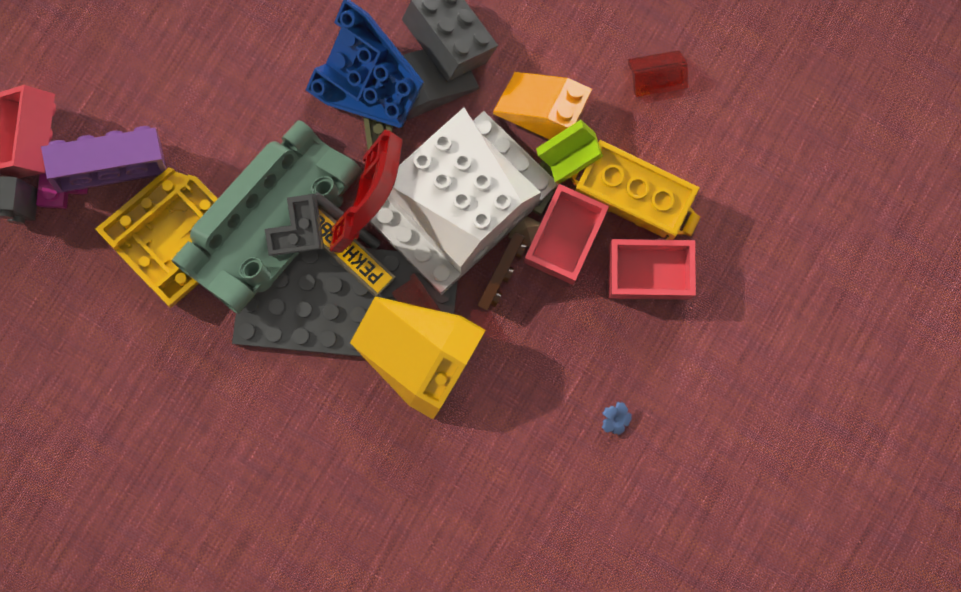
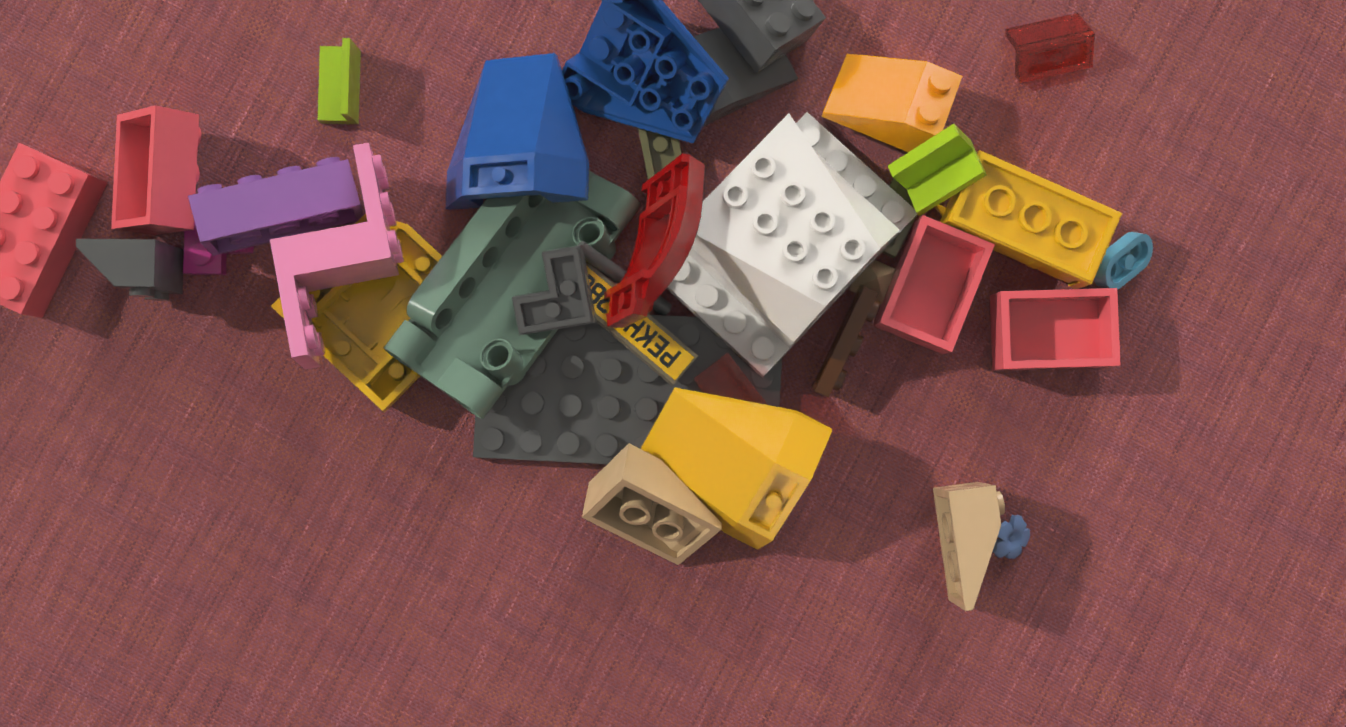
camera: 10 degrees left, 5 degrees up
(142, 196) = (336, 259): none -> bright pink bracket
(156, 78) = (339, 83): none -> lime panel
(278, 119) = (519, 137): none -> blue wedge
(355, 383) = (649, 506): none -> tan slope
(582, 406) = (968, 532): none -> tan slope
(703, 223) = (1124, 260): none -> medium azure plate

